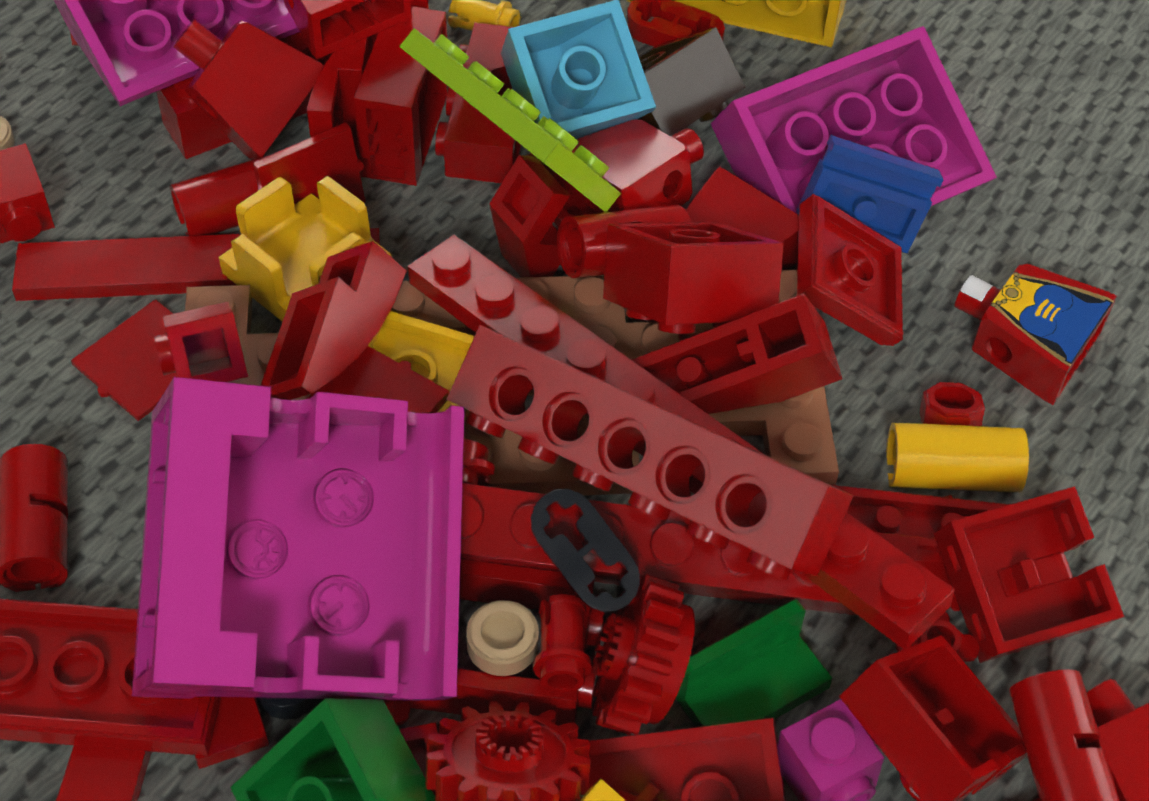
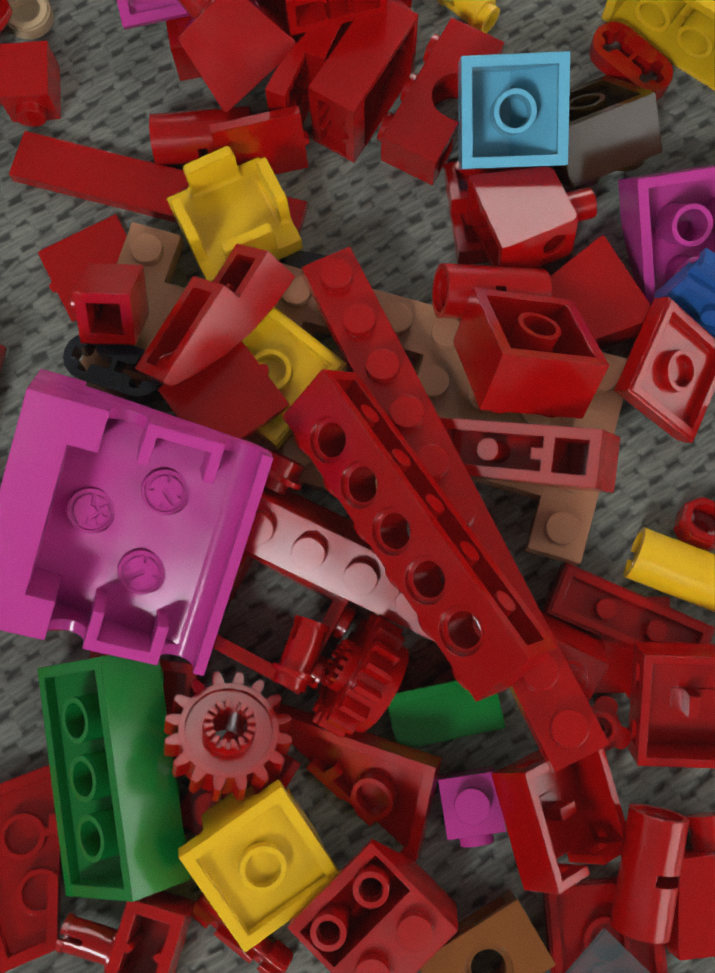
camera: 25 degrees right, 25 degrees up
(502, 638) = (260, 628): tan tile -> none
(514, 116) = (427, 154): lime plate -> none
(524, 217) = (420, 244): red slope -> none
(598, 538) = (327, 597): black beam -> none

